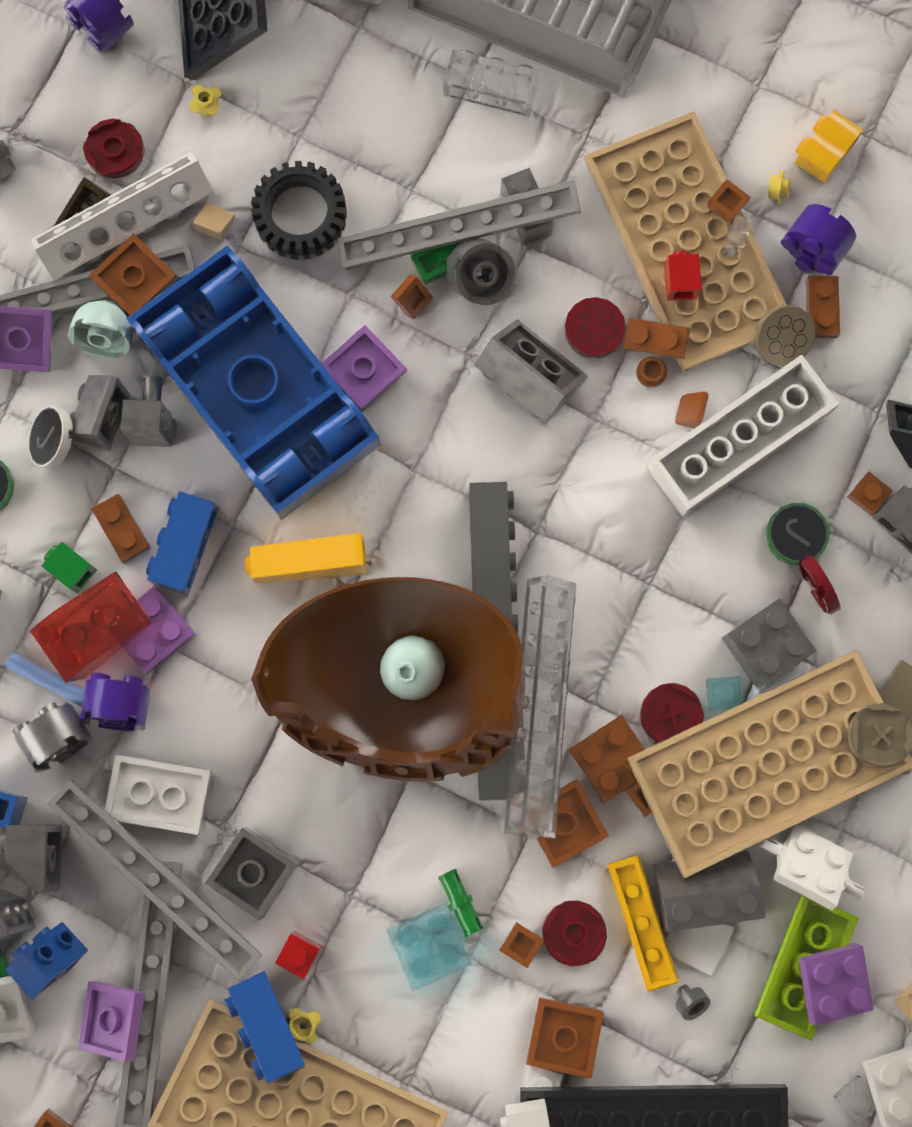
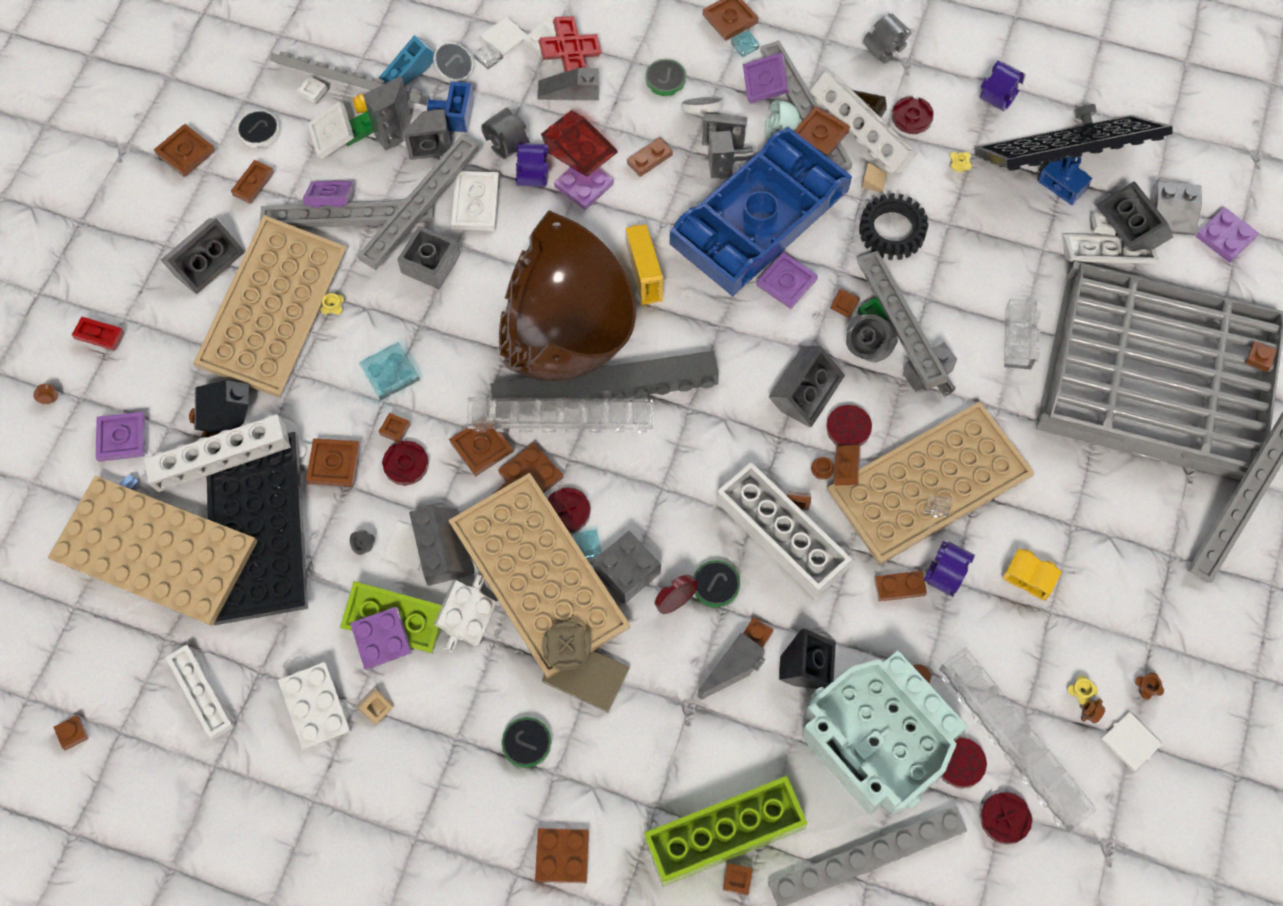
camera: 85 degrees right, 15 degrees down
(45, 678) = (548, 120): light blue axle -> none
(46, 959) = (364, 149): blue brick -> none
(68, 567) = (618, 129): green brick -> none
(182, 543) = (644, 190): blue brick -> none
(264, 1028) = (328, 275): blue brick -> none
(298, 954) = (377, 292): red brick -> none
(412, 668) = (576, 329): light aqua cylinder -> none
(460, 902) = (420, 386): green pin -> none
(643, 923) = (398, 512): yellow tile -> none
(682, 276) = (897, 472): red brick -> none
(728, 201) = (965, 499): dark orange plate -> none
(778, 187) = (989, 541): light yellow plate -> none
(784, 334) = (869, 553): dark tan tile -> none

